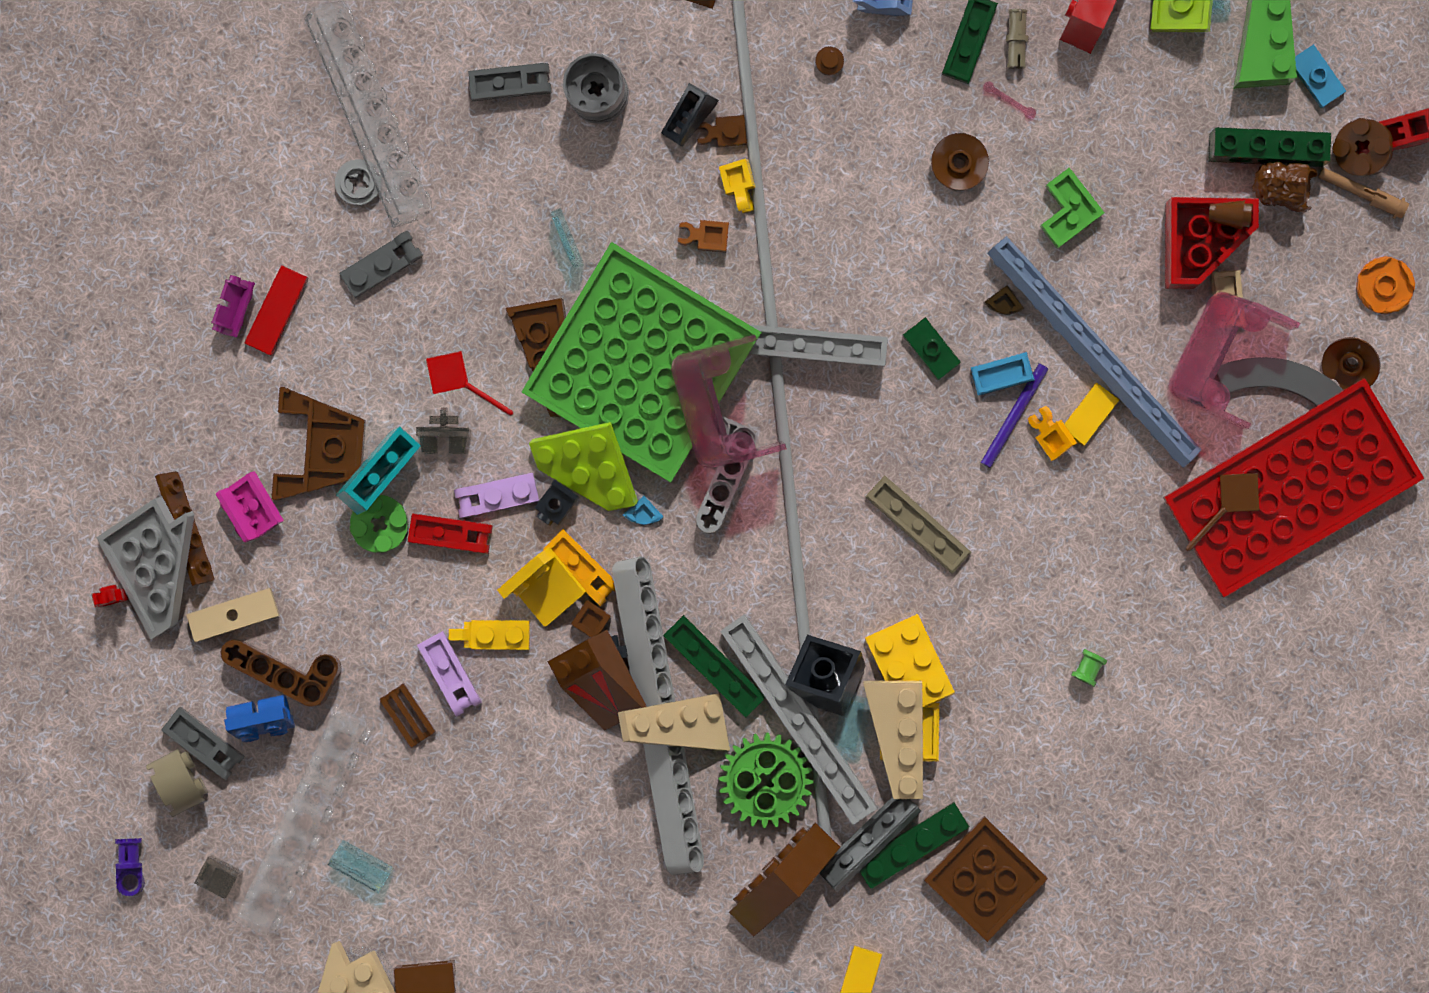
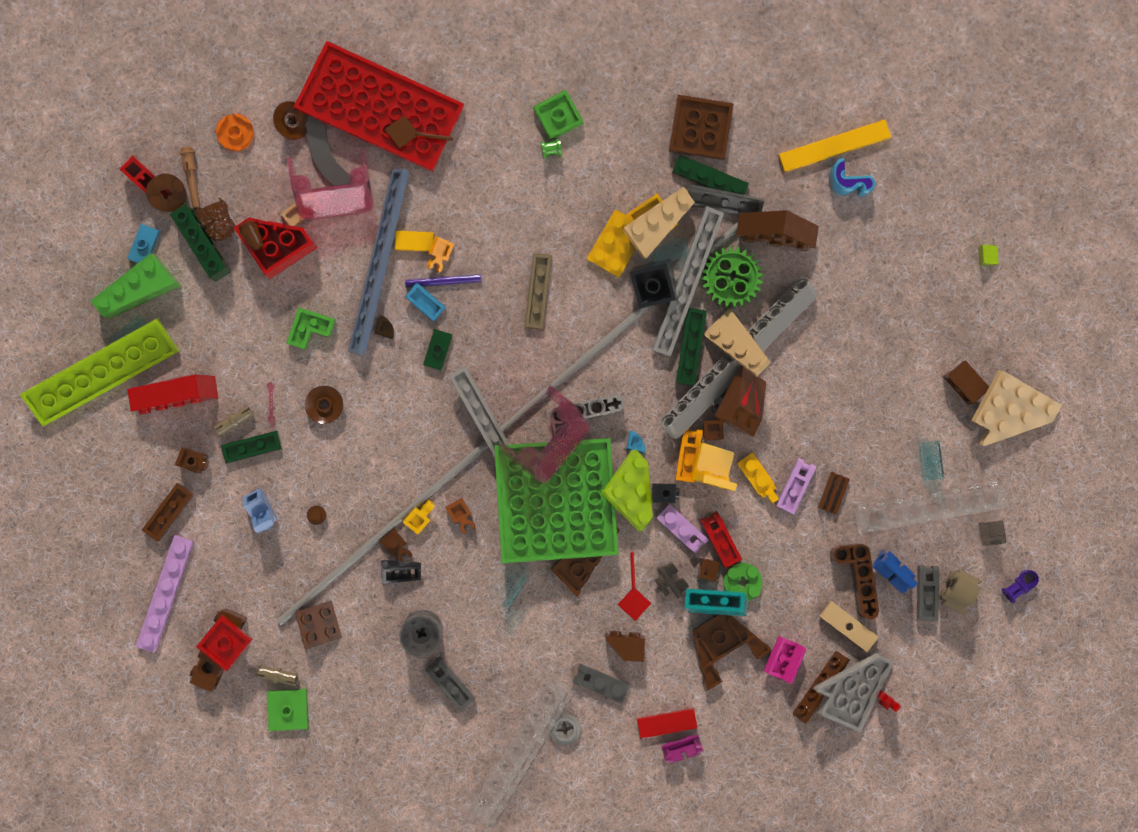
camera: 130 degrees left, 0 degrees up
(402, 325) = (629, 646): none -> reddish brown slope
(423, 491) = (708, 569): none -> reddish brown panel
(1127, 707) = (558, 115): none -> bright green plate

